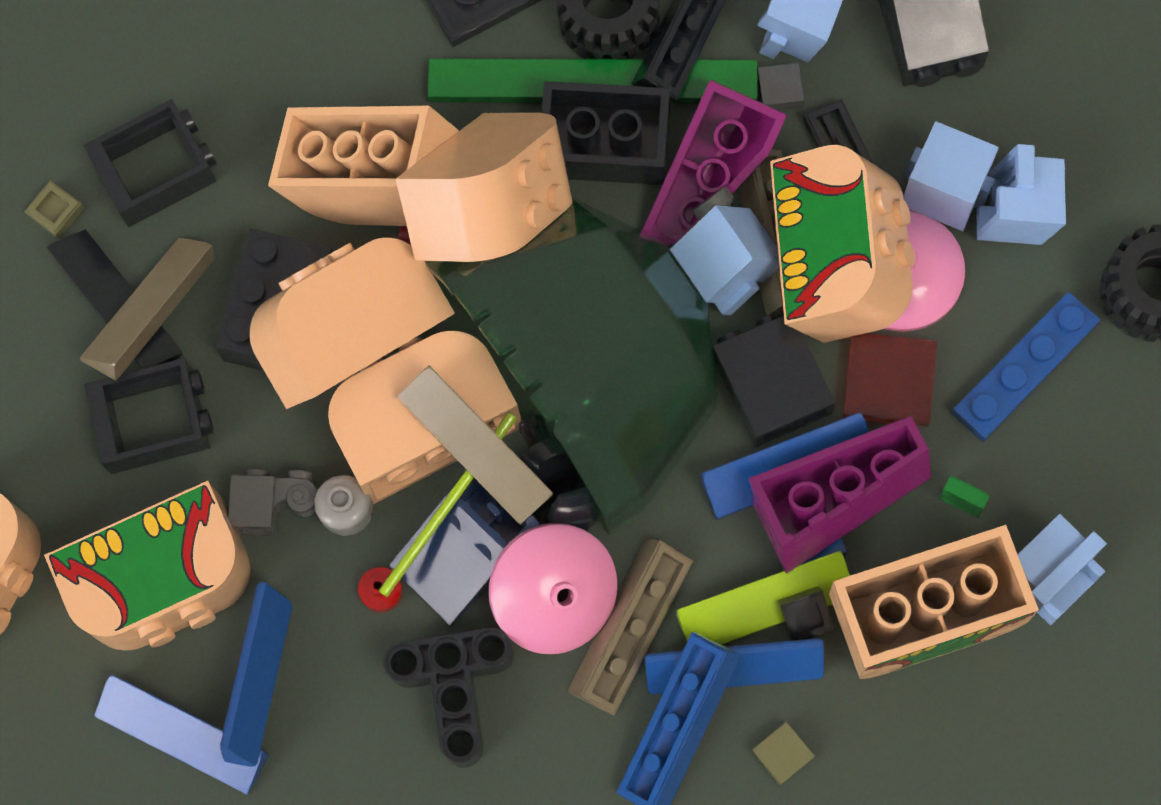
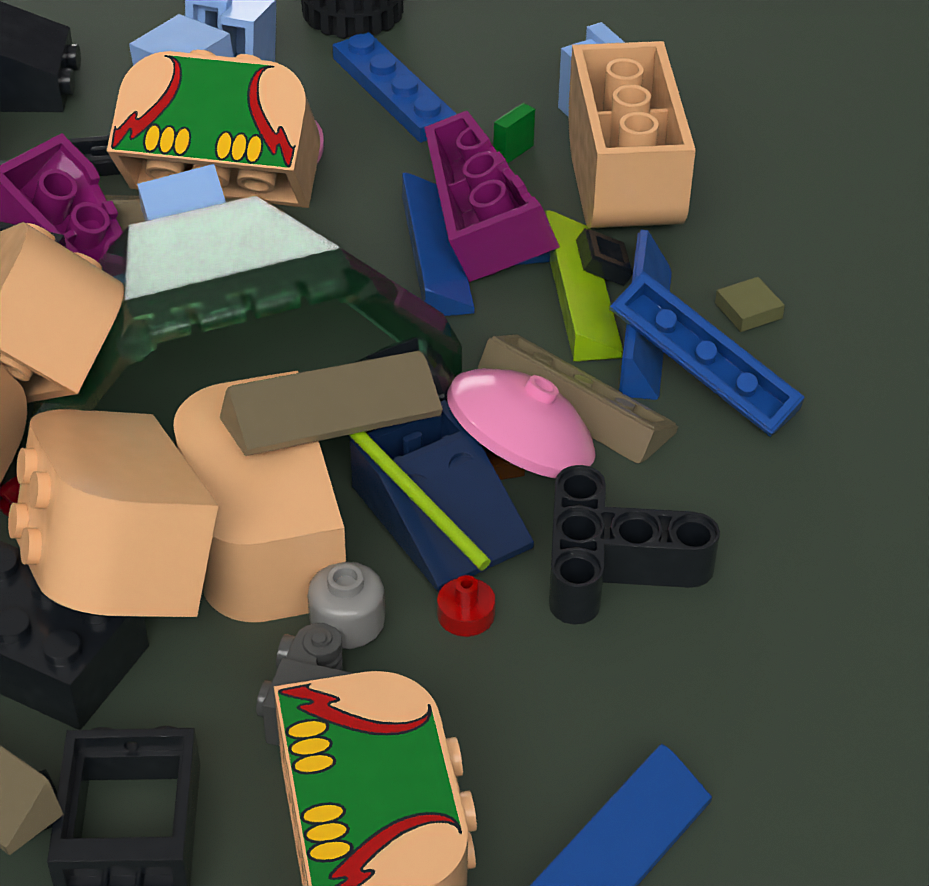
camera: 85 degrees left, 30 degrees down
(255, 677) = (560, 736): blue slope -> none
(720, 197) = (124, 210): dark grey tile -> none
(772, 379) = (354, 215): black brick -> none
(890, 378) = (369, 166): clear red tile -> none

